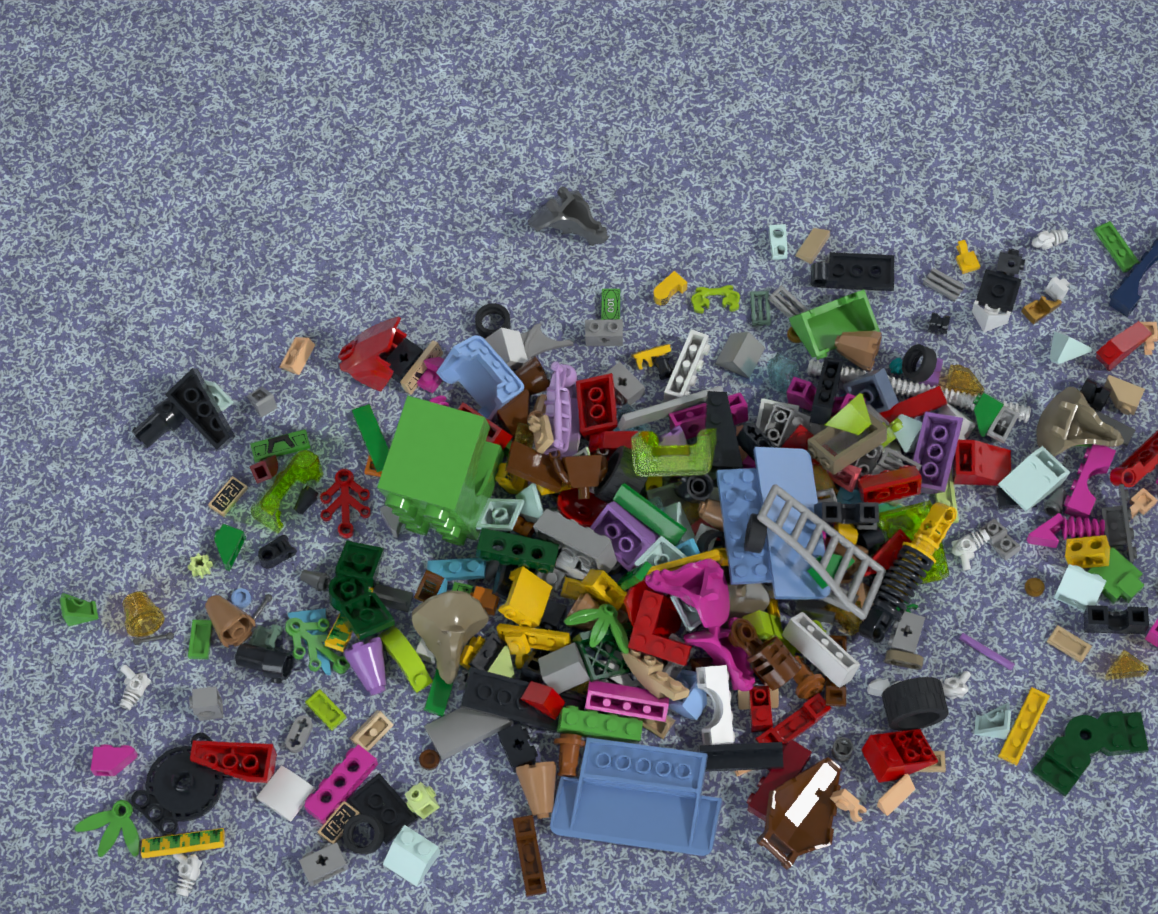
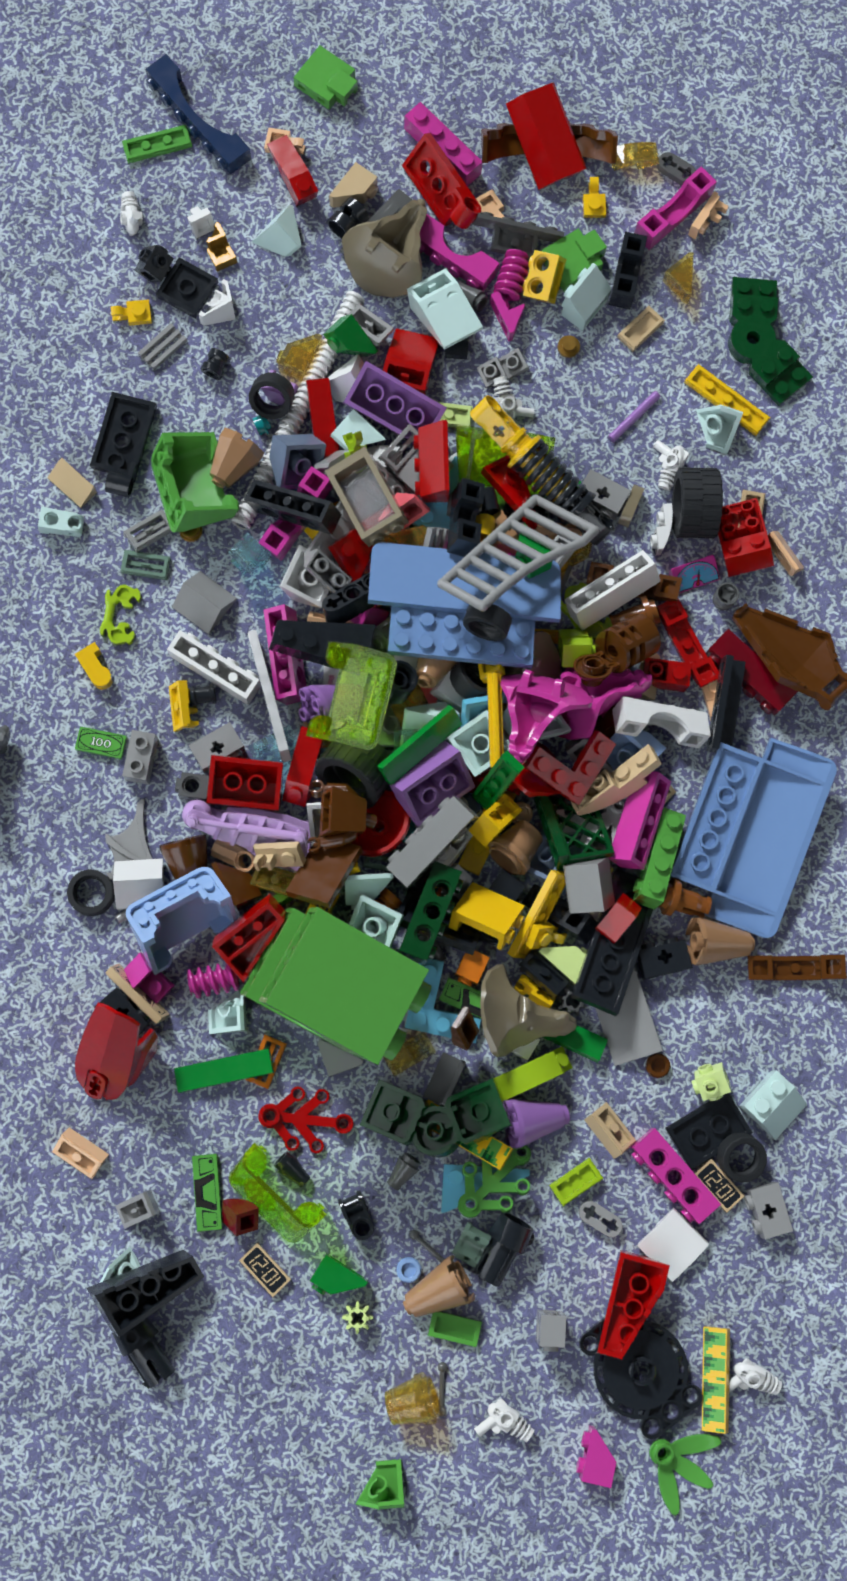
camera: 90 degrees left, 15 degrees up
(408, 568) = (411, 1053): none -> clear yellow slope
(588, 366) = (185, 780): none -> dark grey brick
(606, 616) = (540, 823): bright green plant -> none
(846, 801) = (790, 604): light nougat plate -> none
(852, 417) = (342, 482): lime slope -> none
(856, 722) = (696, 573): none -> slope

